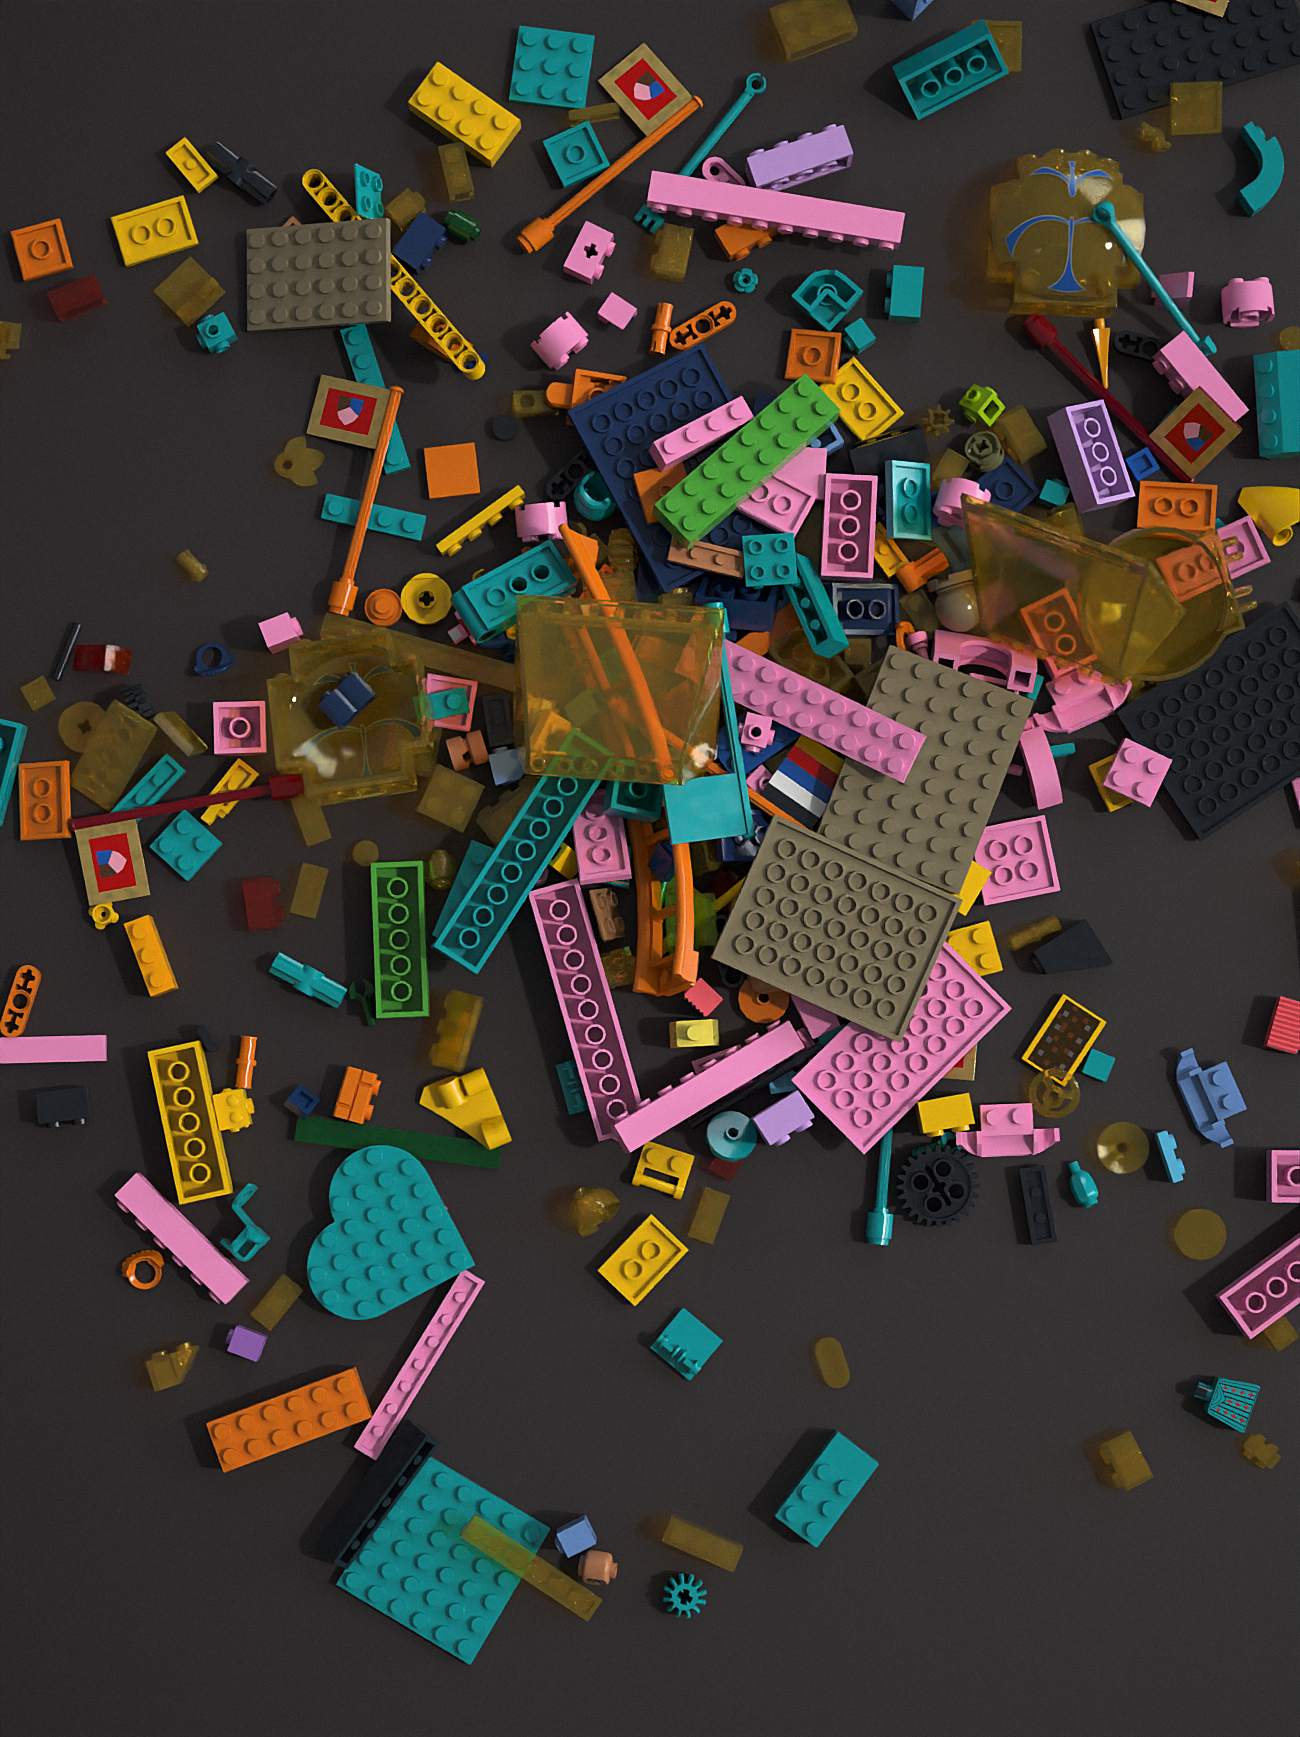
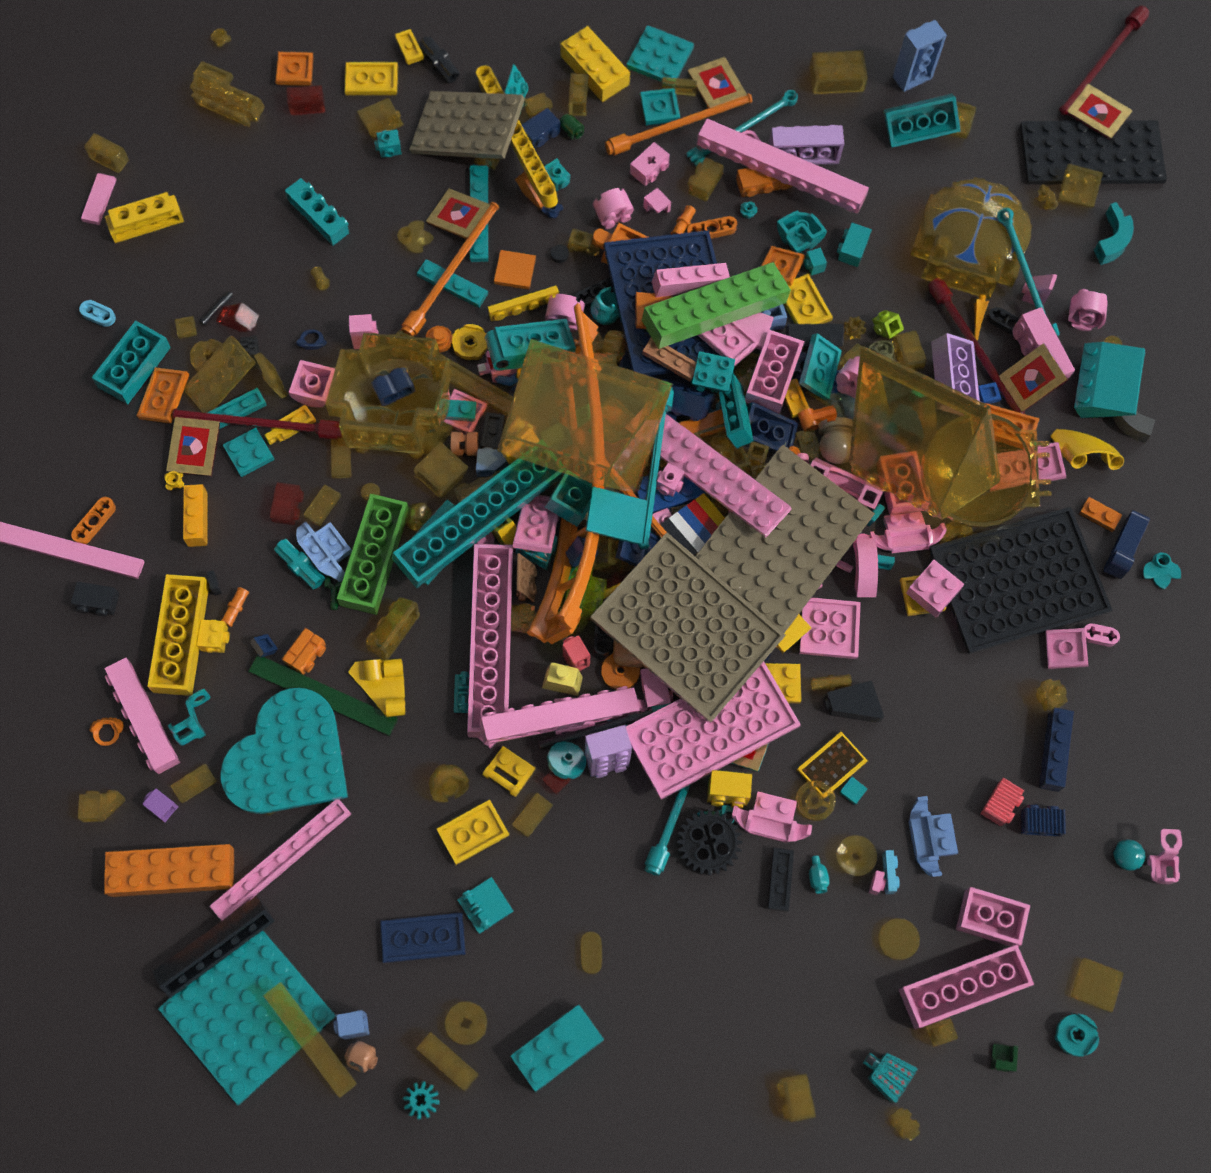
camera: 15 degrees right, 15 degrees down
(184, 492) = (332, 231): none -> teal brick
(333, 950) = (324, 548): none -> light blue plate
(454, 310) = (558, 174): none -> teal brick
(623, 1405) = (422, 937): none -> dark blue tile
(694, 1488) = (455, 1018): none -> clear yellow plate
(1157, 1174) = (877, 883): none -> bright pink plate

